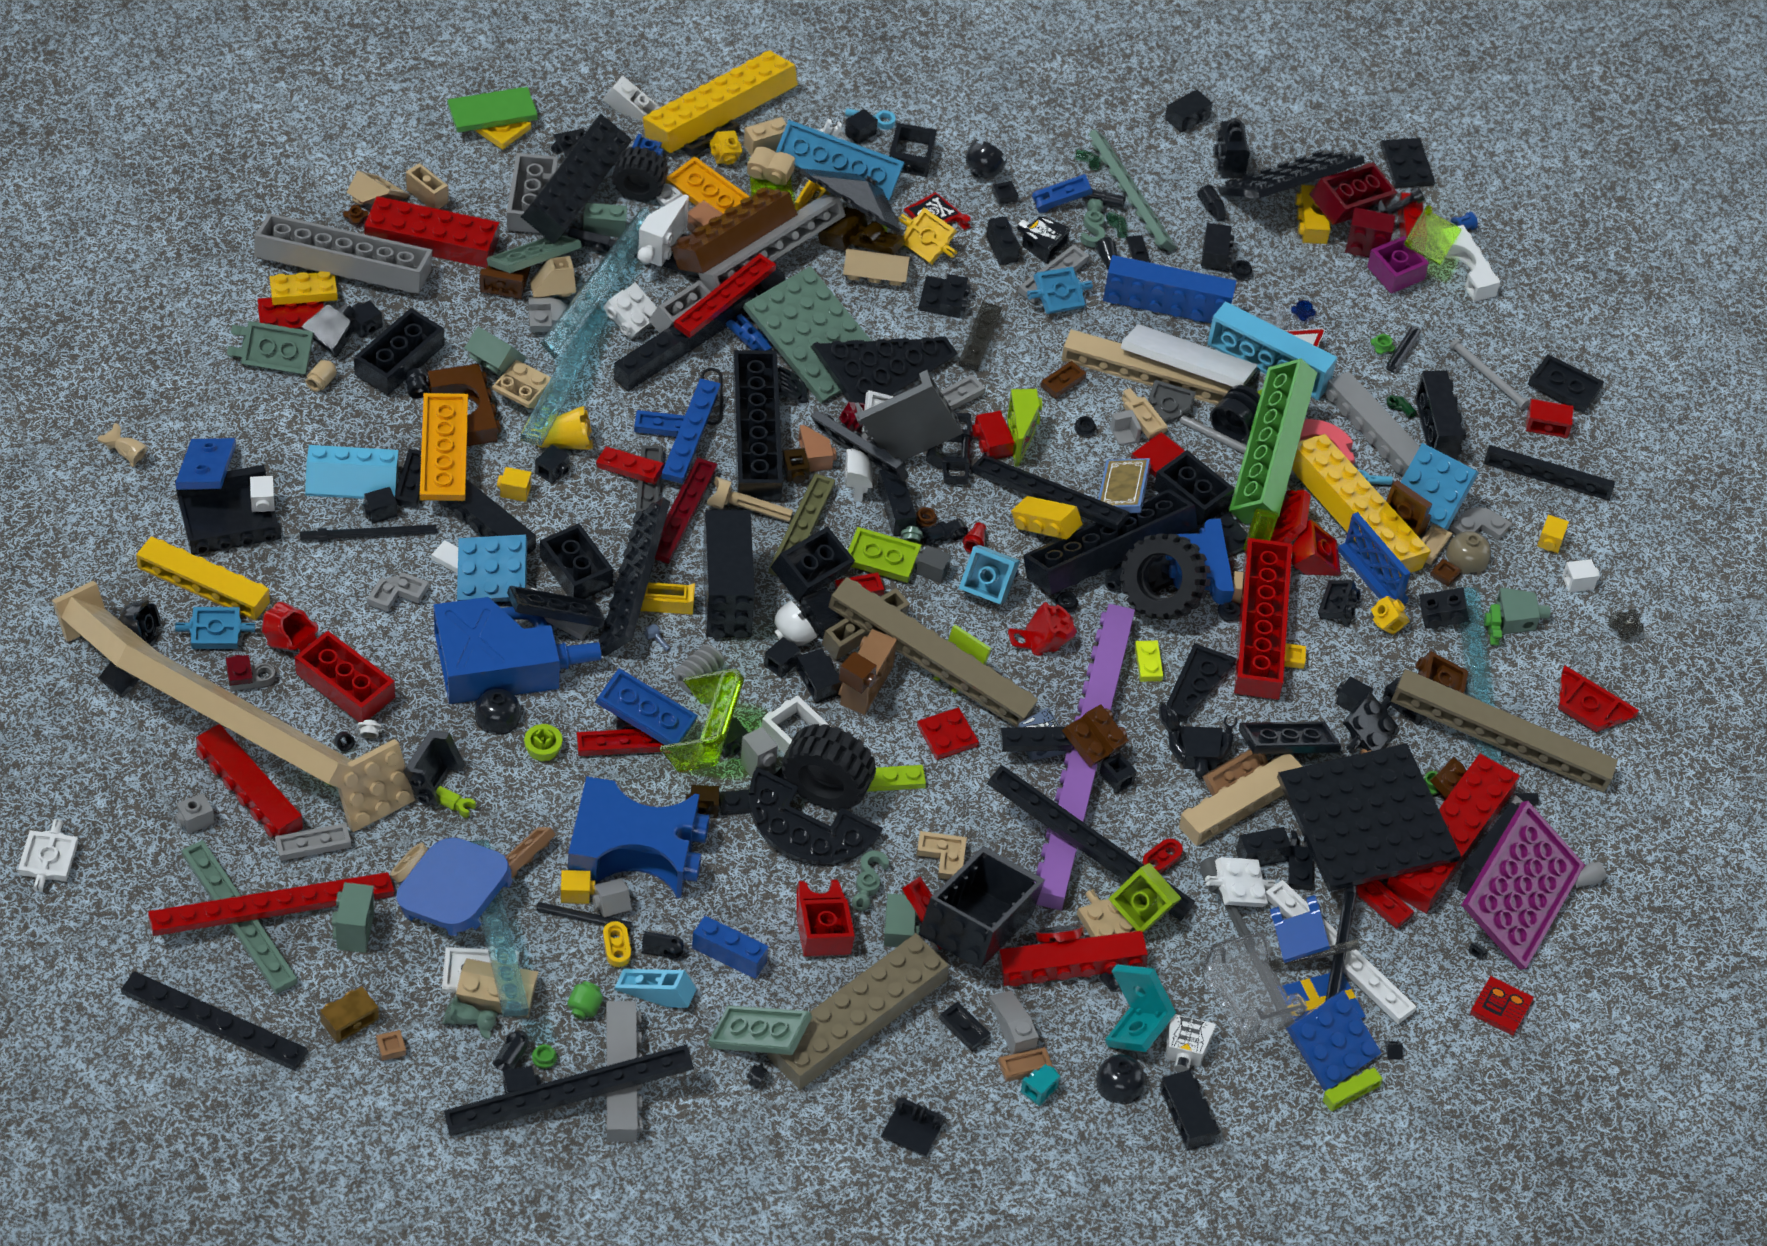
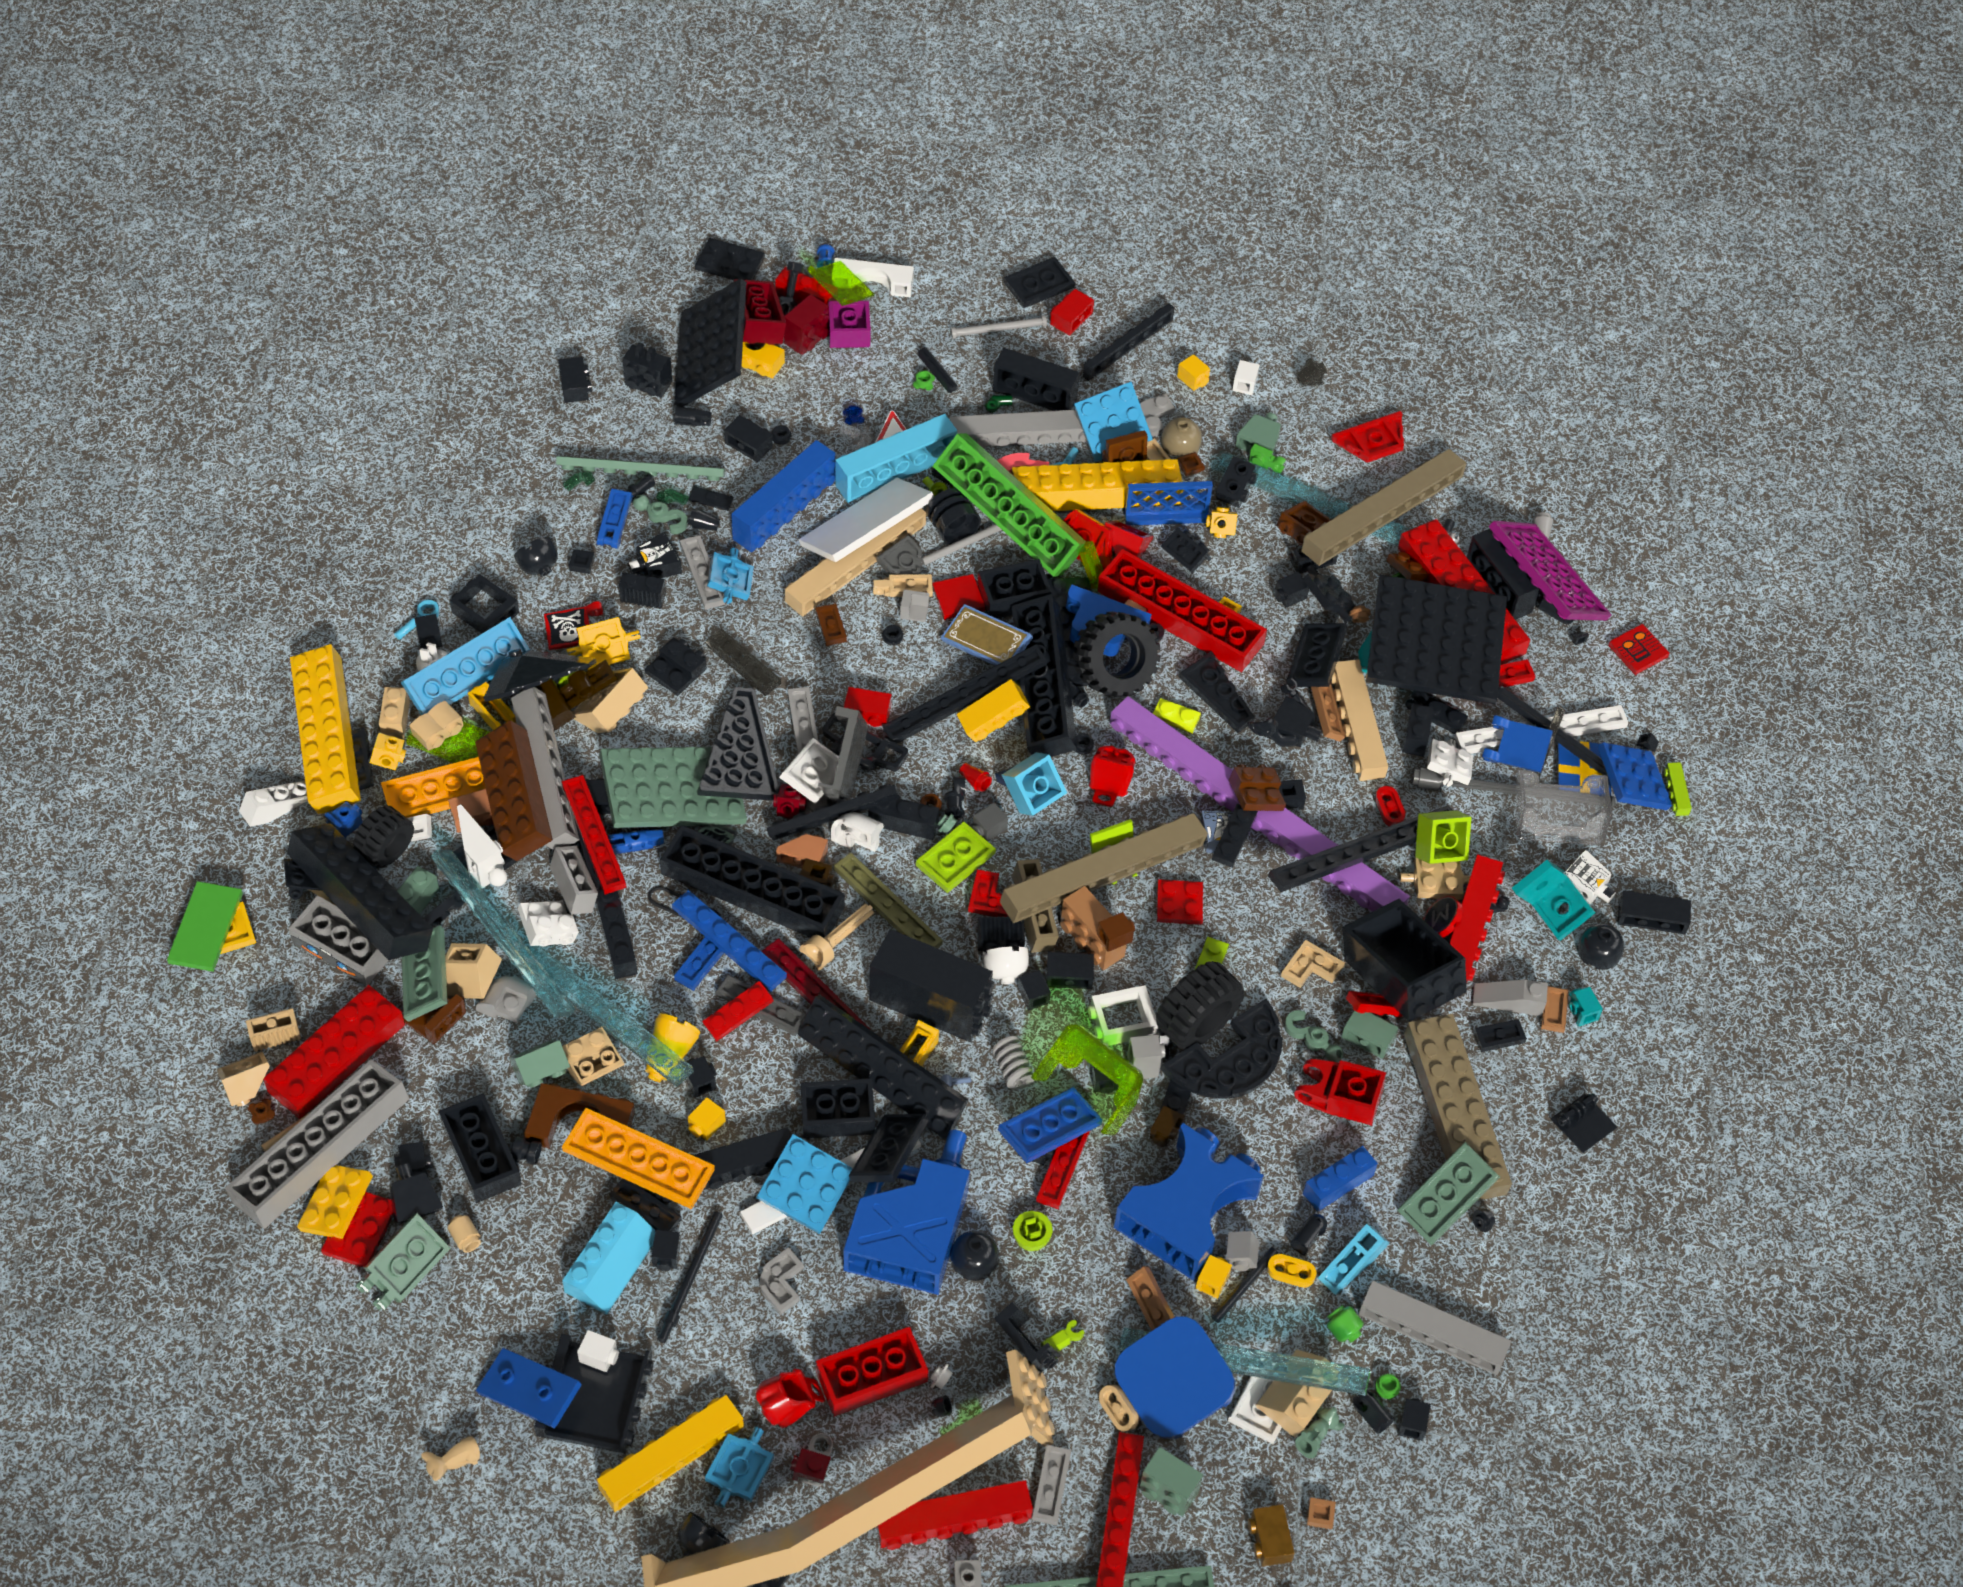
camera: 60 degrees left, 5 degrees up
(568, 1090) = (1448, 1380): black plate -> none
(812, 563) = (949, 914): black brick -> none
(1022, 419) = (869, 671): lime slope -> none

